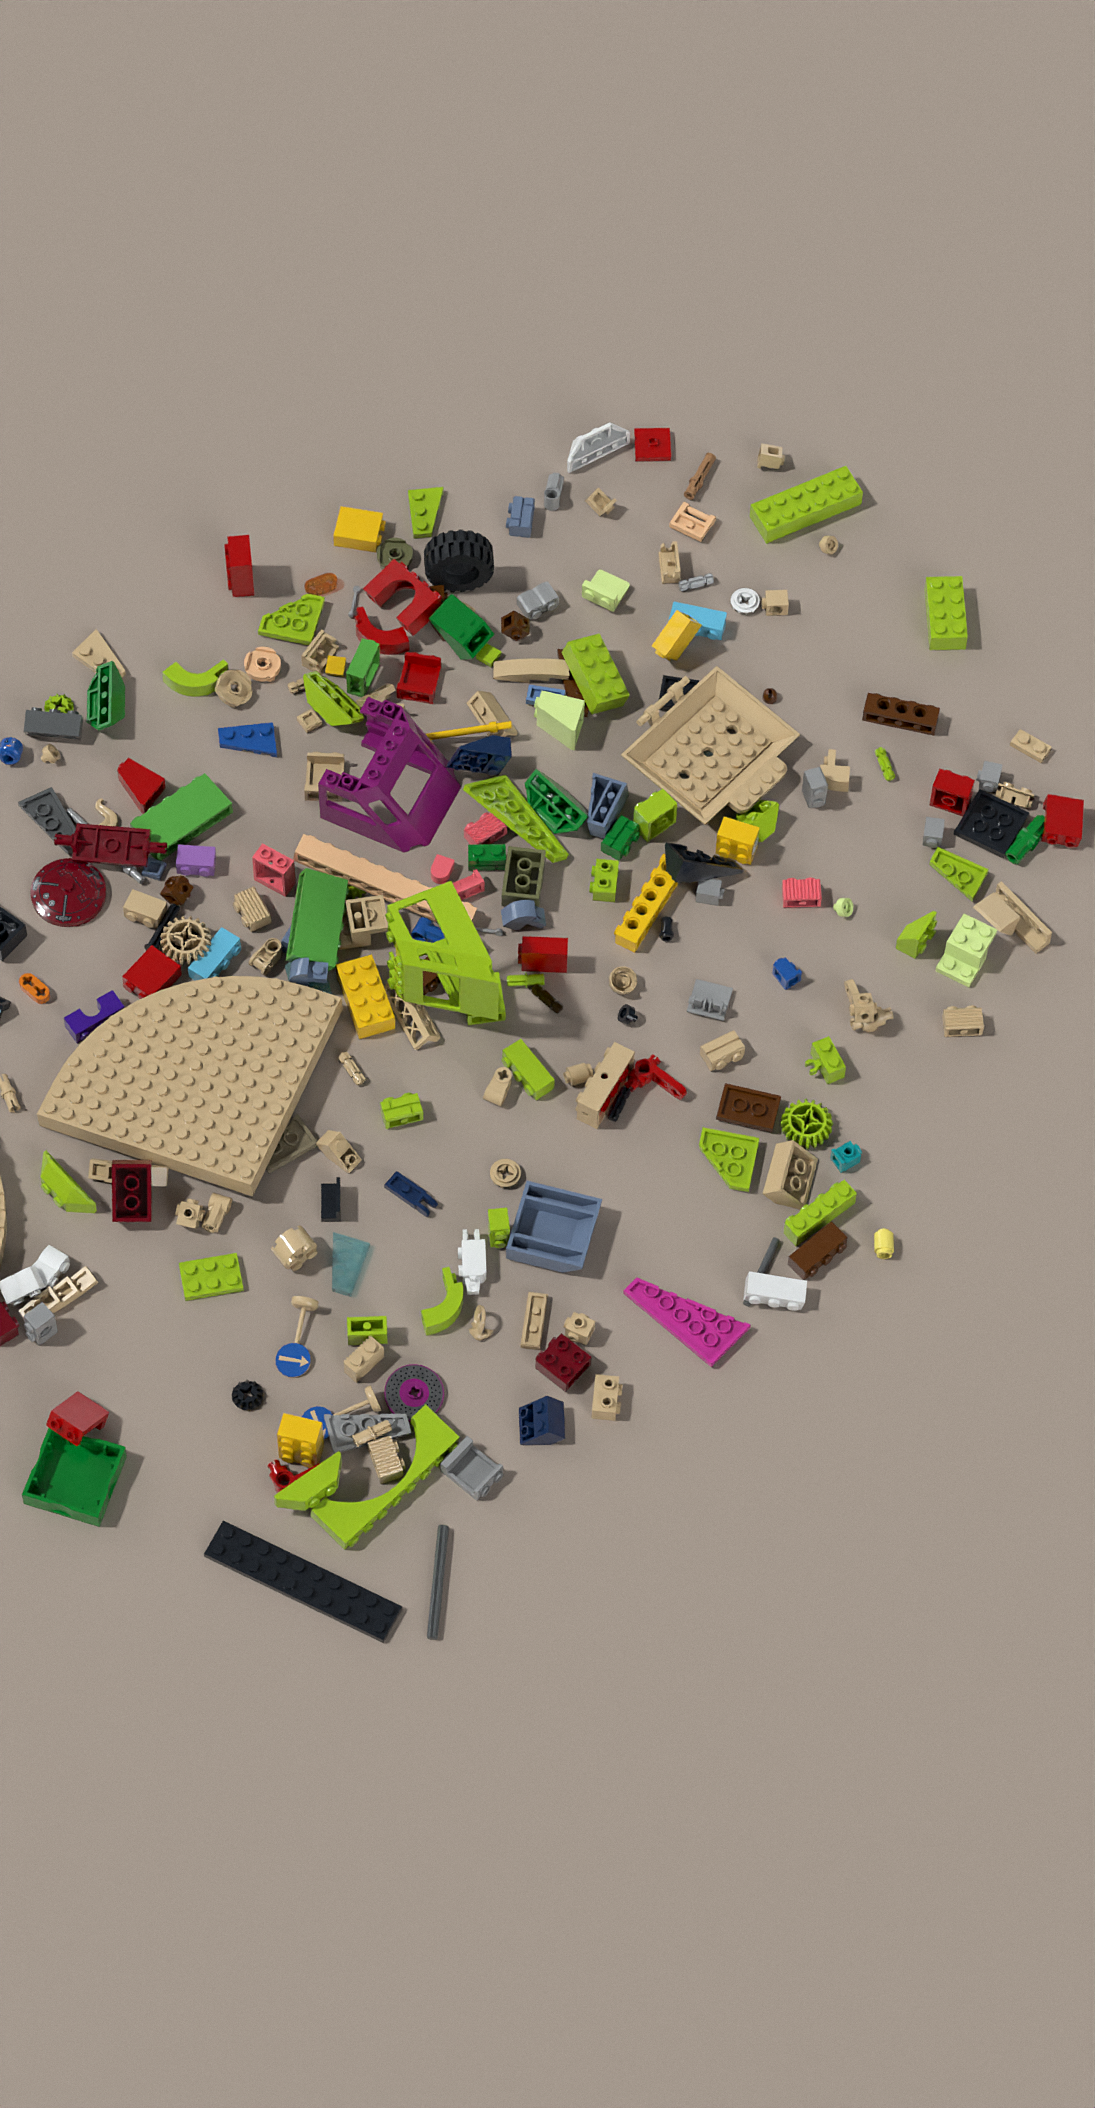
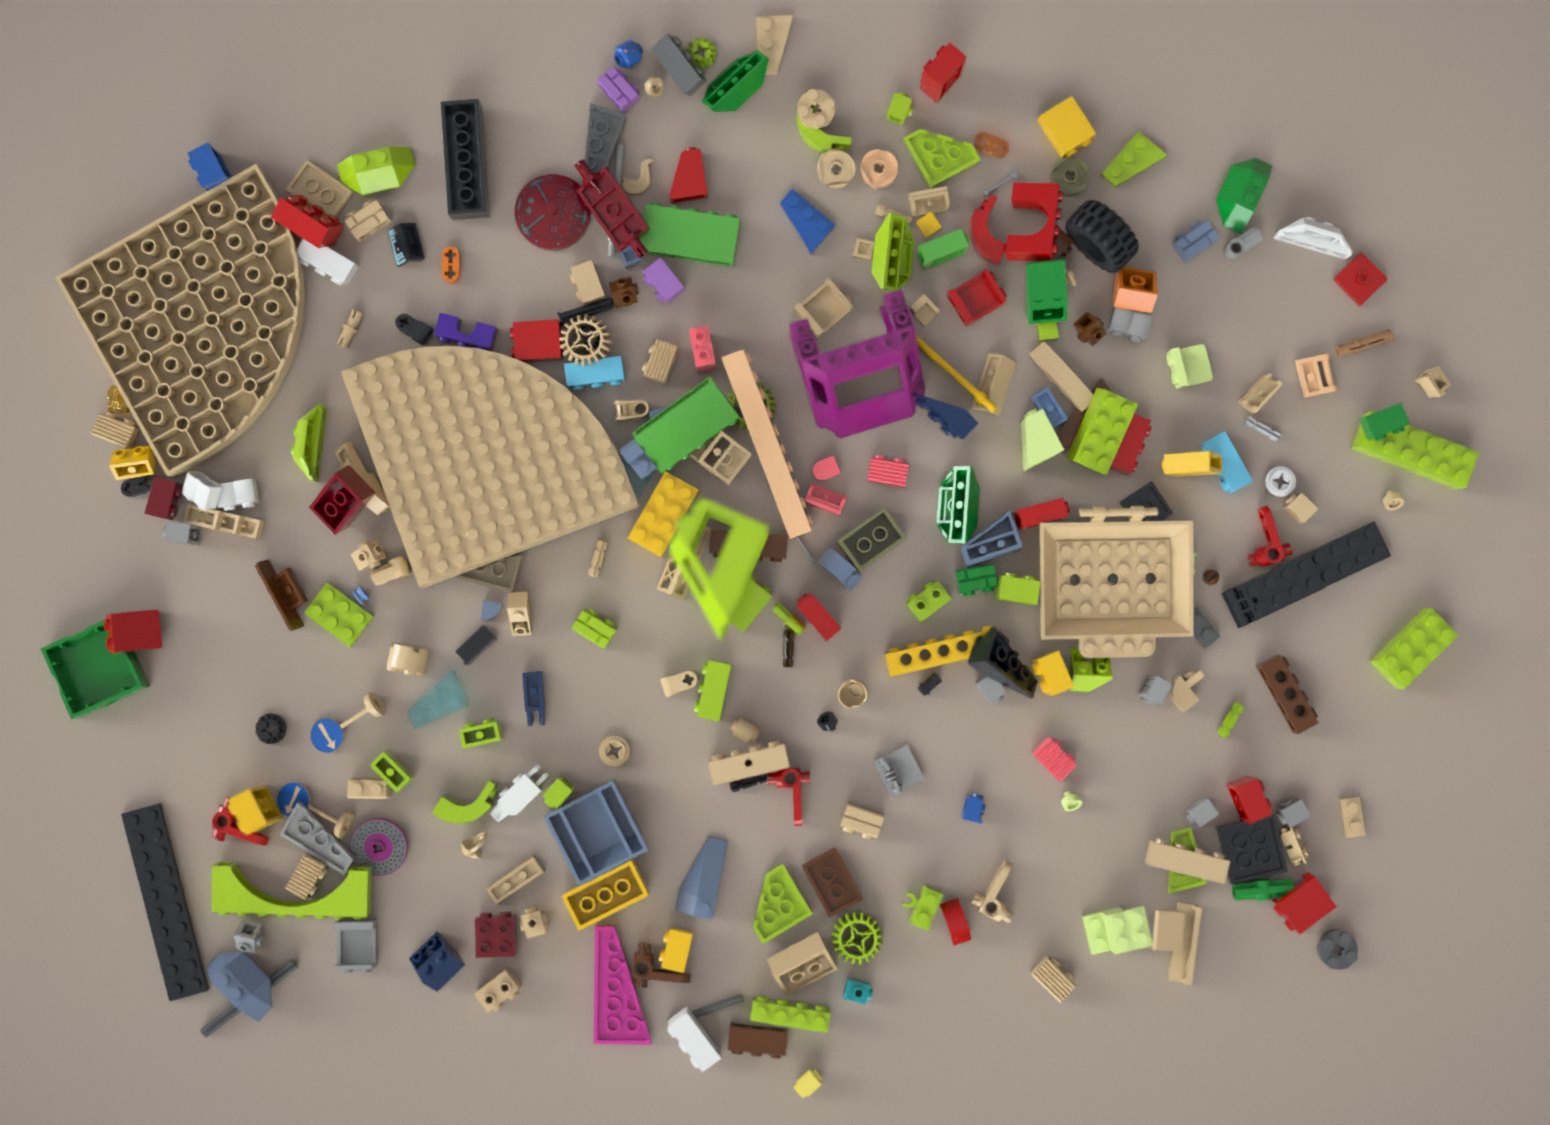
camera: 50 degrees right, 25 degrees up
(28, 777) = (618, 89): none -> medium lavender brick
(55, 1047) = (415, 330): none -> black piece
(156, 1293) = (284, 591): none -> reddish brown bracket
(176, 654) = (819, 119): none -> tan plate
(212, 1246) = (361, 595): none -> medium blue bush
(234, 617) = (899, 108): none -> lime brick
(312, 1486) = (228, 852): lime wedge -> none
(314, 1170) = (490, 609): none -> sand blue tile
(371, 1433) = (313, 850): tan axle -> none
(379, 694) = (923, 280): tan plate -> none
(390, 1535) = (248, 936): none -> light grey brick
(401, 1247) = (482, 734): none -> lime brick
(421, 1569) = (242, 983): none -> sand blue wedge
(427, 931) = (762, 510): blue piece -> none
(487, 857) = (865, 494): green brick -> none
(511, 808) = (923, 475): lime wing -> none
(517, 575) = (1135, 289): none -> orange brick
(518, 464) = (1242, 192): none -> green wedge
(600, 502) = (1266, 289): tan bracket -> none
(606, 1261) = (605, 894): none -> yellow brick
(611, 762) = (1041, 513): none -> red window
(626, 667) = (1131, 445): none -> red brick
(664, 1193) = (701, 886): none -> sand blue wedge
(695, 1247) = (676, 950): none -> yellow brick
(697, 1281) = (645, 956): none -> reddish brown piece
(765, 498) = (1385, 421): none -> green brick
(780, 636) = (1261, 554): none -> red piece
(807, 730) = (1203, 630): none -> dark grey plate
(827, 638) = (1306, 574): none -> black hinge
(857, 1045) = (955, 921): none -> red brick
(863, 1008) = (987, 904): tan brick -> none
(915, 935) = (1094, 882): lime slope -> none
(958, 865) = (1187, 862): none -> tan brick

